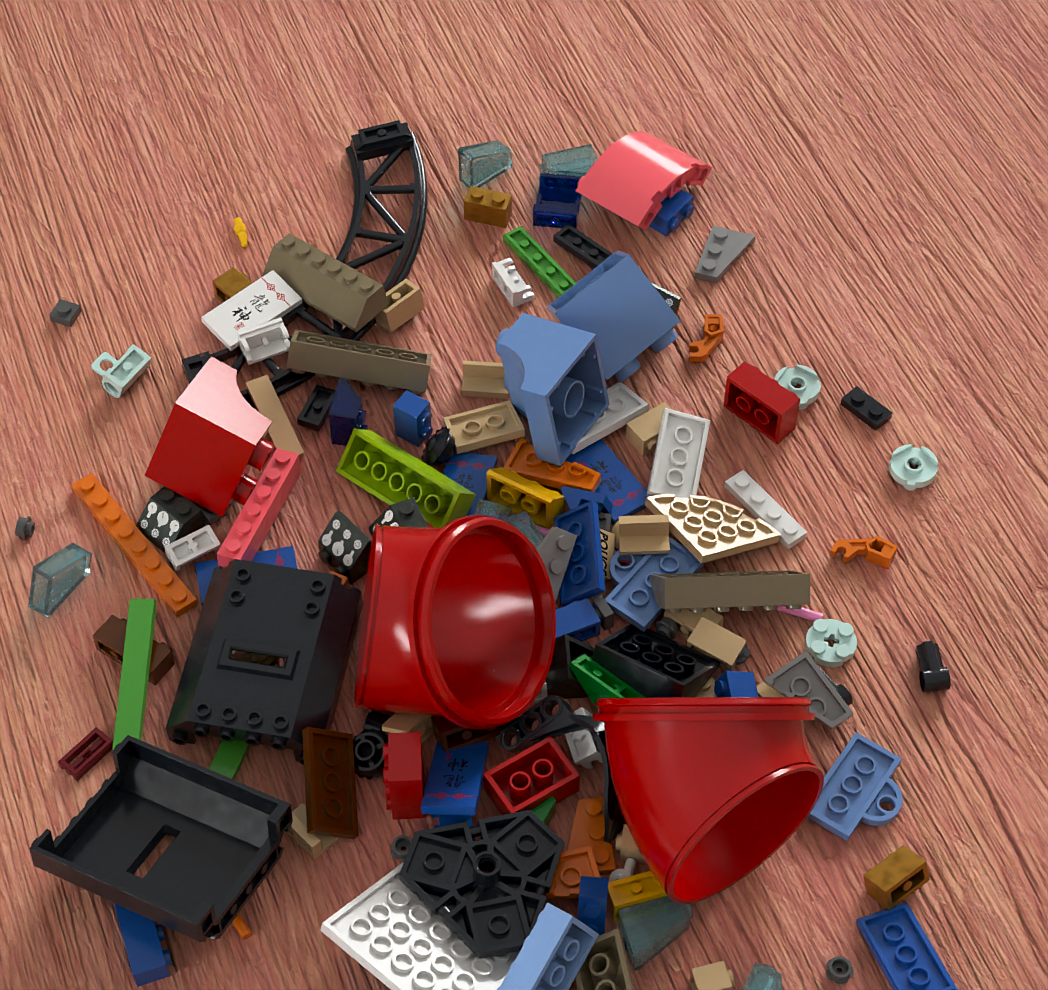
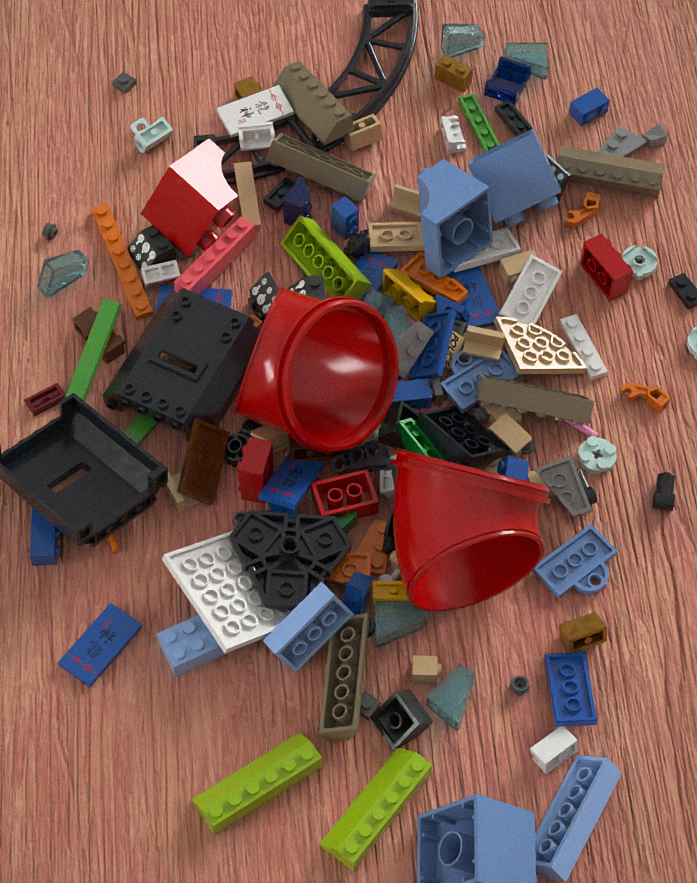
camera: 15 degrees right, 5 degrees up
(240, 230) = (267, 49): yellow piece -> none
(639, 175) = (573, 74): coral panel -> none
(727, 282) = (612, 171): none -> dark tan slope
(762, 227) = (655, 136): none -> light grey slope

